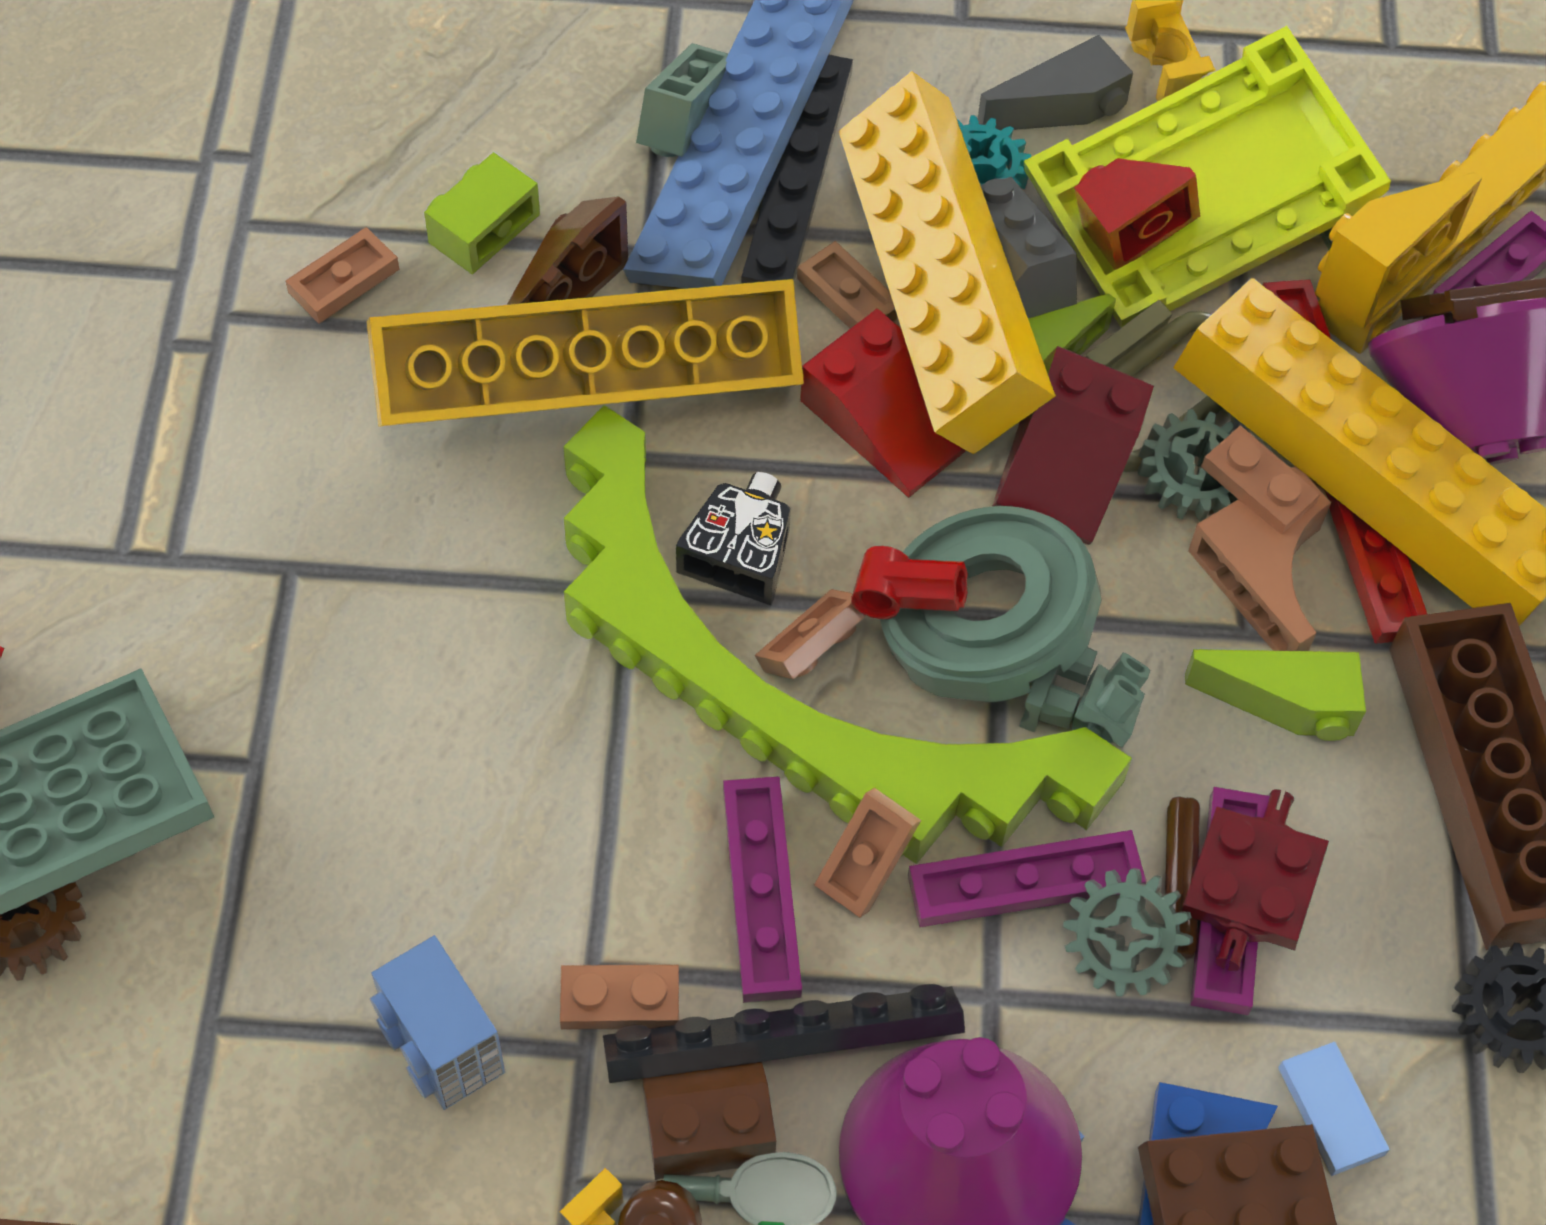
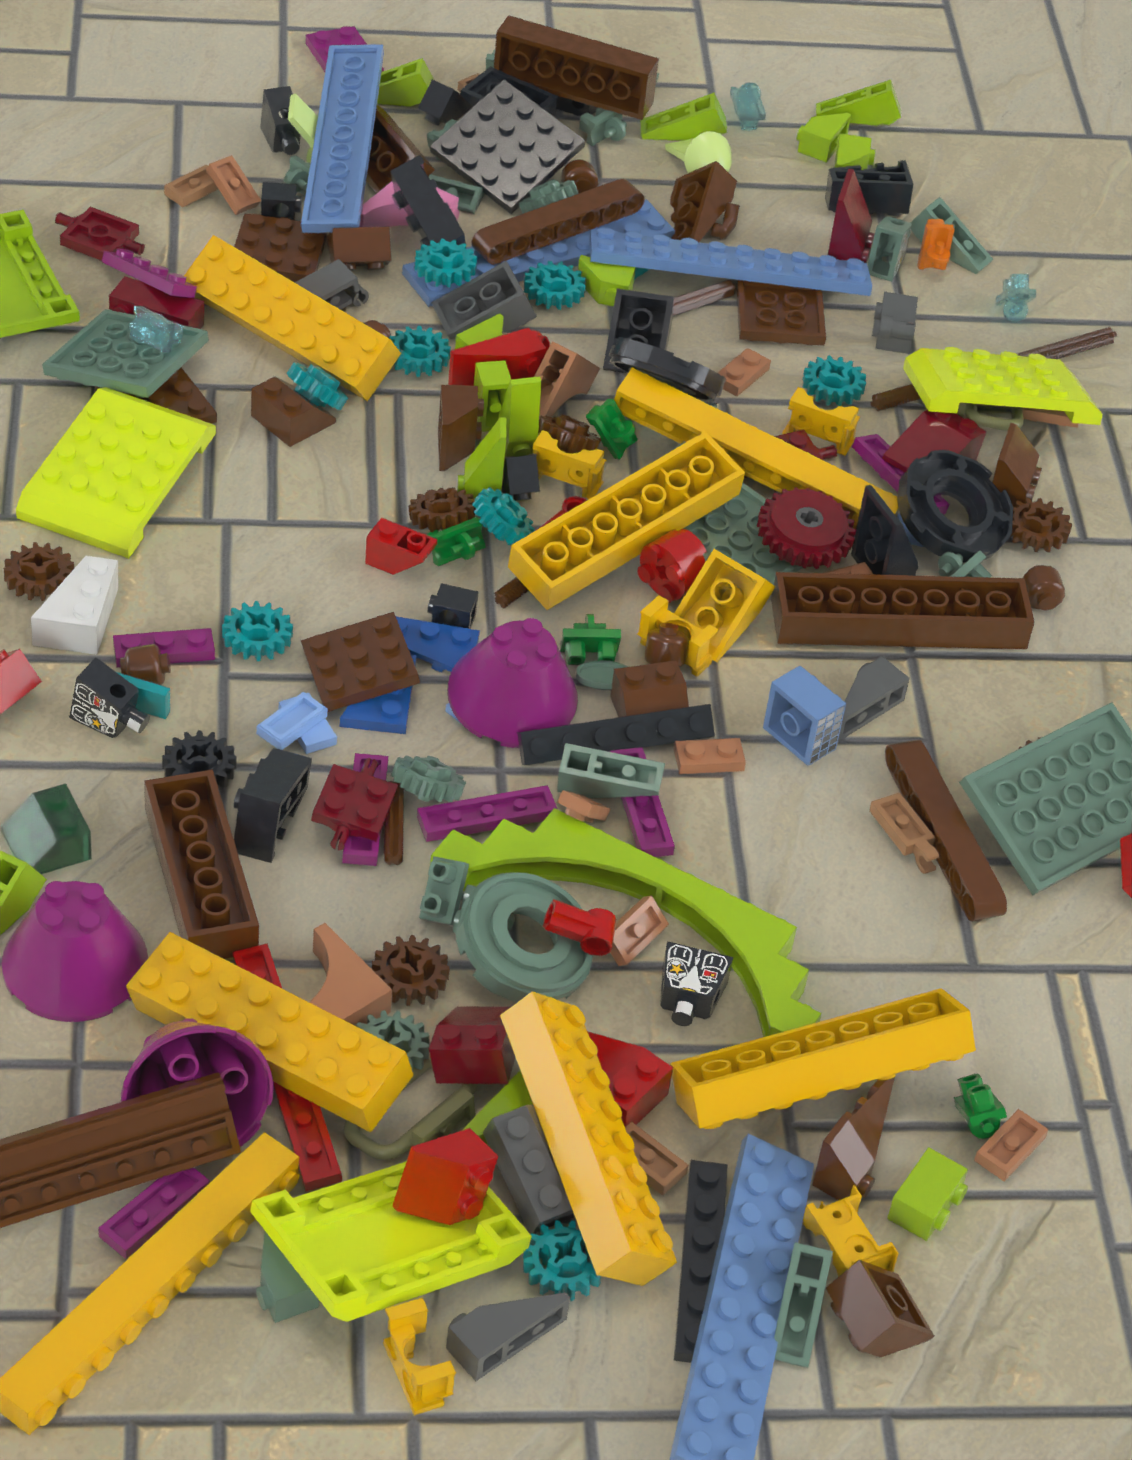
camera: 170 degrees right, 15 degrees down
(254, 808) = (958, 850): none -> reddish brown beam
(290, 1106) = (874, 691): none -> dark grey slope
(321, 808) = (906, 830): none -> medium nougat plate
(371, 292) = (979, 1106): none -> green hips
(588, 78) = (877, 1310): none -> reddish brown slope
(613, 154) = (848, 1234): none -> yellow piece
(821, 909) = (607, 774): none -> sand green slope
(1159, 590) = (412, 969): none -> reddish brown gear
(1260, 479) = (351, 1007): nougat plate -> none
(1292, 689) = (346, 915): lime slope -> none
(1365, 1088) = (291, 721): none -> light blue tile
(1391, 245) = (253, 1146): yellow slope -> none
(1395, 908) = (267, 800): none -> black wedge

